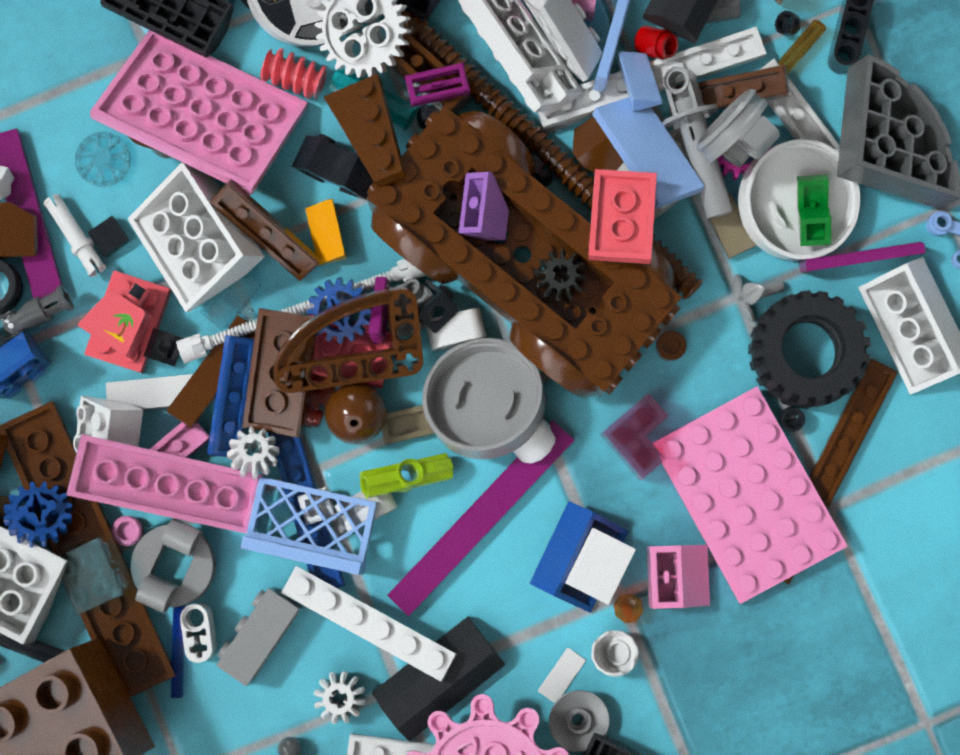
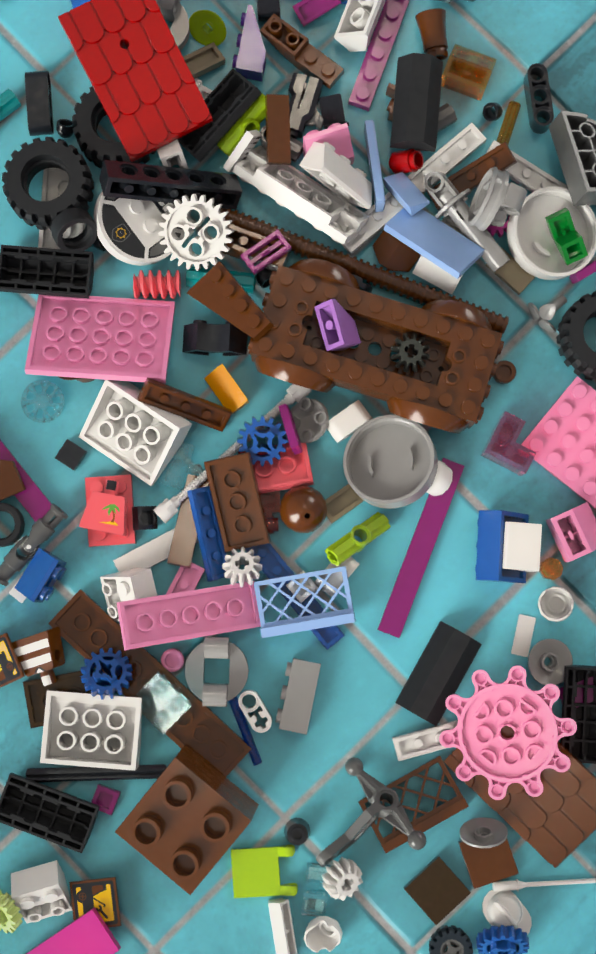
camera: 30 degrees left, 0 degrees up
(81, 245) = (53, 468): white pin -> none
(335, 706) = (376, 707): white gear -> none
(363, 359) = (298, 478): reddish brown beam -> none
(369, 623) = (374, 654): white plate -> none
(441, 298) = (330, 402): black bracket -> none
(622, 216) = (439, 293): coral plate -> none

